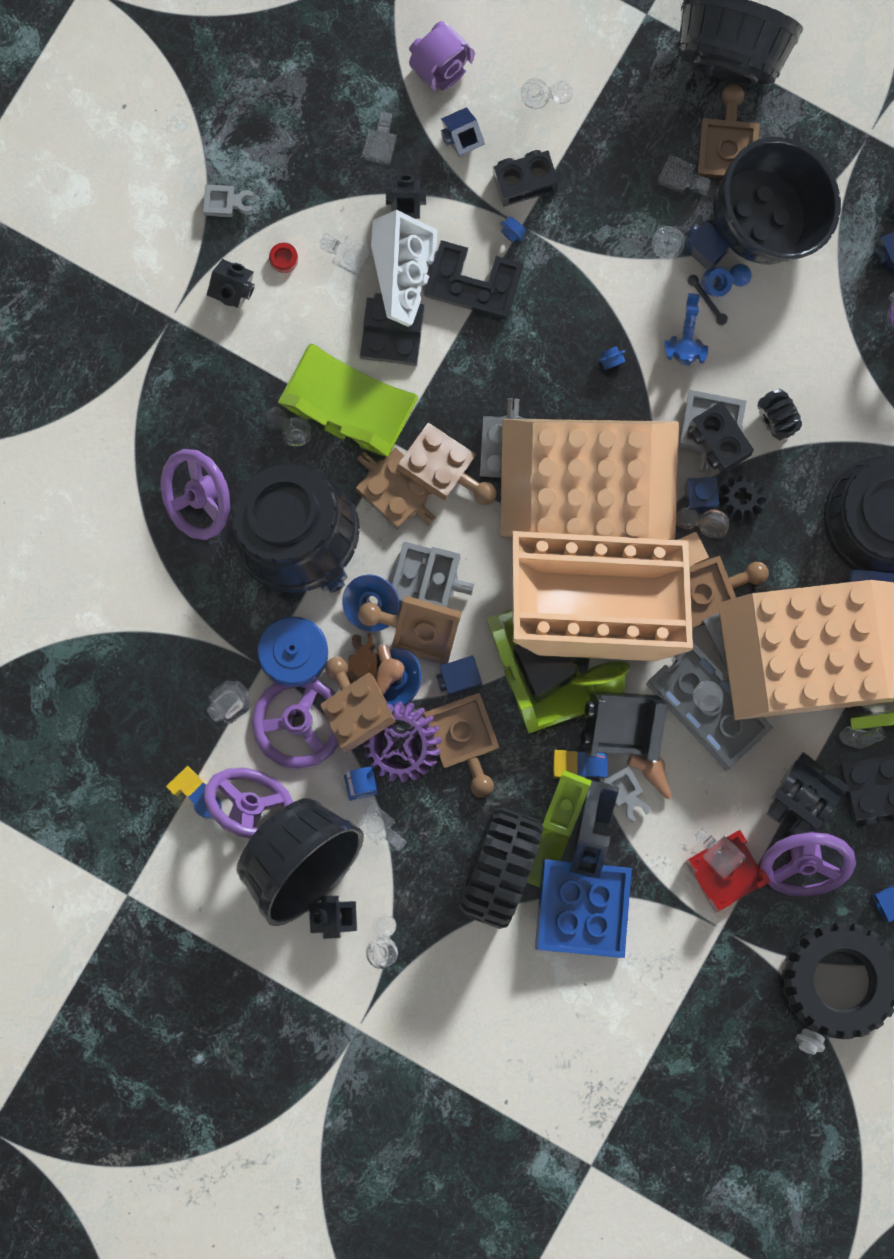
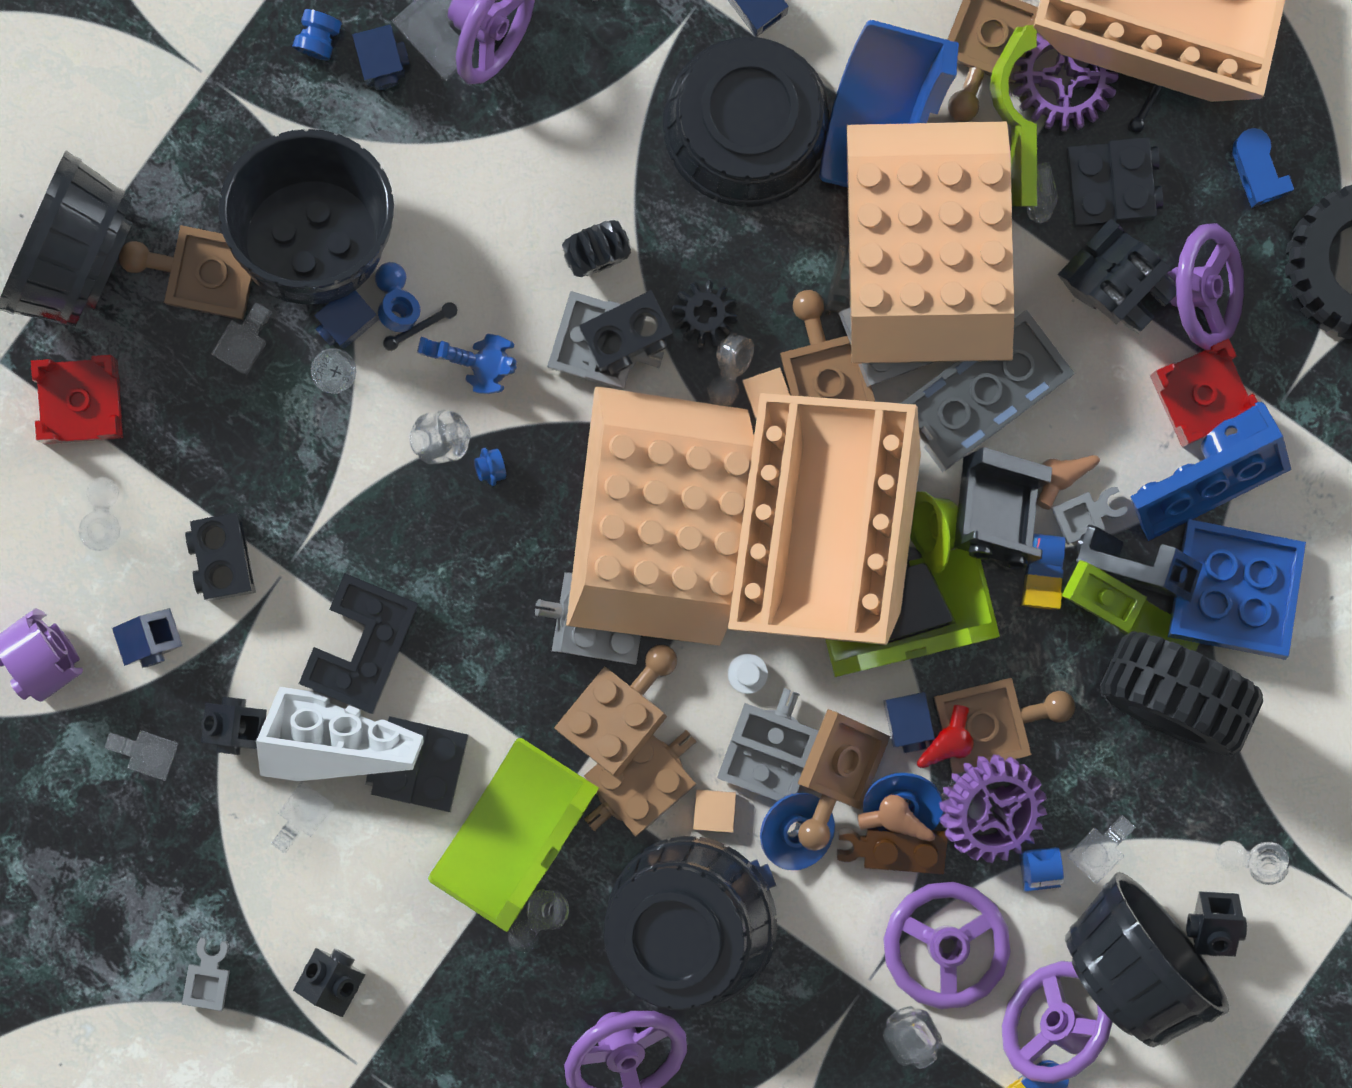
camera: 90 degrees left, 5 degrees up
(283, 257) = (296, 904): red tile -> none
(292, 652) = (852, 944): blue wheel -> none
(357, 709) = (945, 864): medium nougat plate -> none
(379, 544) = (714, 811): none -> light nougat tile
(447, 705) = (951, 741): none -> red animal
(482, 557) = (747, 673): none -> white plate
(512, 229) = (293, 582): blue plate -> none
(626, 68) = (78, 400): none -> red panel
(629, 319) = (440, 437): none -> clear head
(669, 890) = (1230, 469): none -> blue plate
(702, 494) = (695, 366): dark blue brick -> none
(707, 696) = (978, 392): clear plate -> none
(721, 854) = (1185, 397): clear plate -> none

